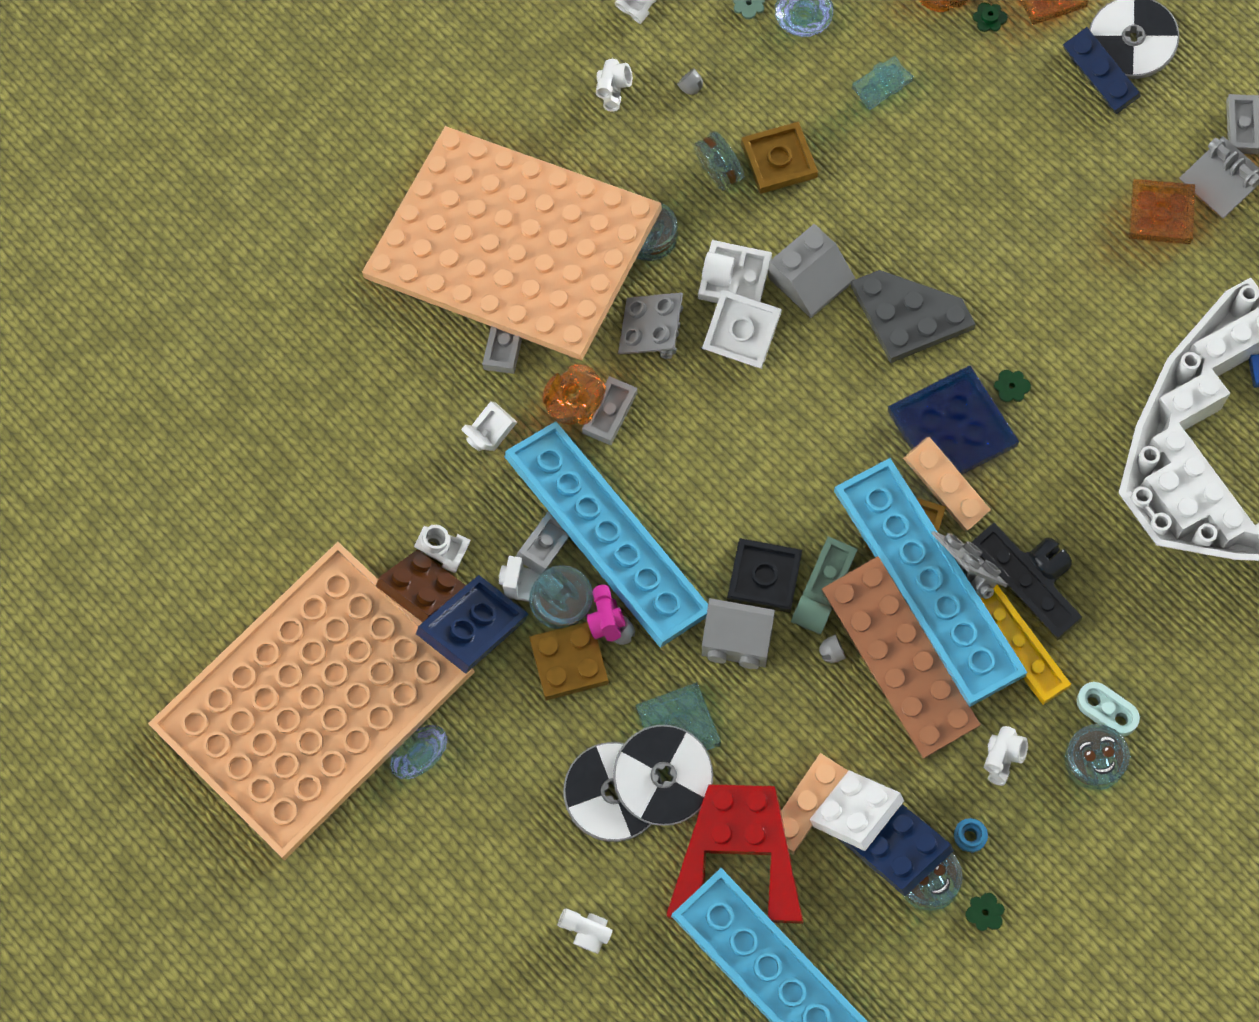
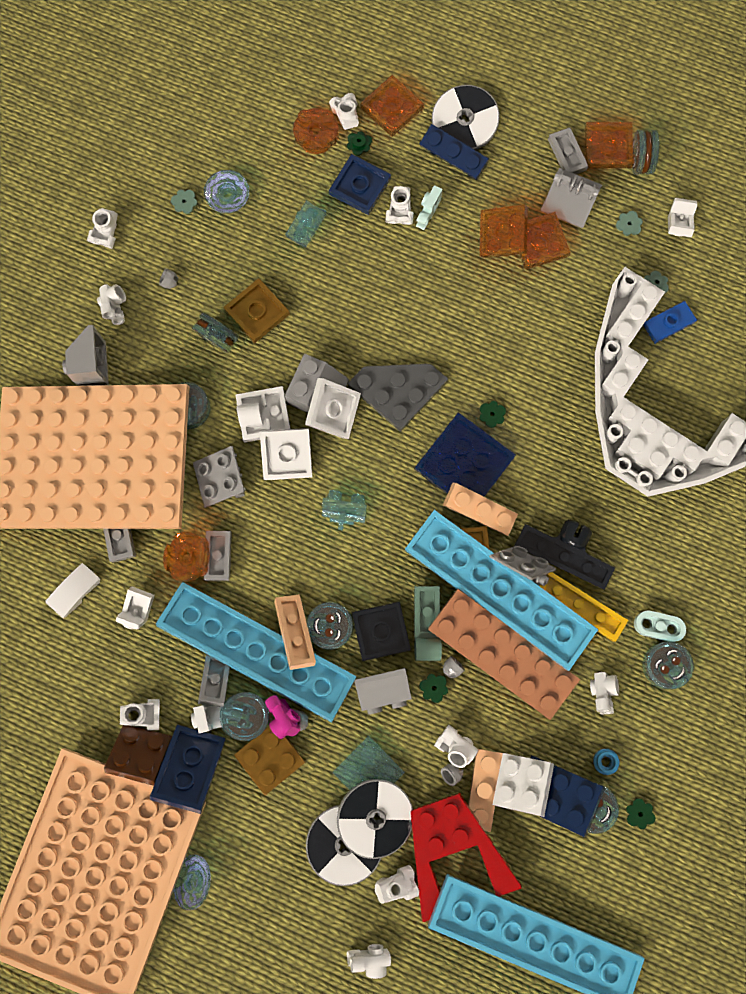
camera: 25 degrees left, 10 degrees up
(422, 380) = (72, 590): none -> white slope
(557, 130) = (87, 359): none -> light grey slope
(655, 862) = (397, 886): none -> white plate
(662, 528) = (294, 632): none -> light nougat plate
(706, 542) = (330, 626): none -> clear light blue head
(777, 767) = (451, 774): none -> light grey hinge
(782, 421) = (343, 511): none -> clear light blue hips
(795, 738) = (459, 748): none -> white plate
(799, 656) = (426, 686): none -> dark green plant
(820, 299) = (332, 408): none -> white plate
(968, 63) = (359, 184): none -> dark blue plate
(1004, 112) = (401, 211): none -> white plate
(1044, 118) = (430, 203): none -> light aqua plate
(1119, 182) = (503, 231): none -> clear orange plate

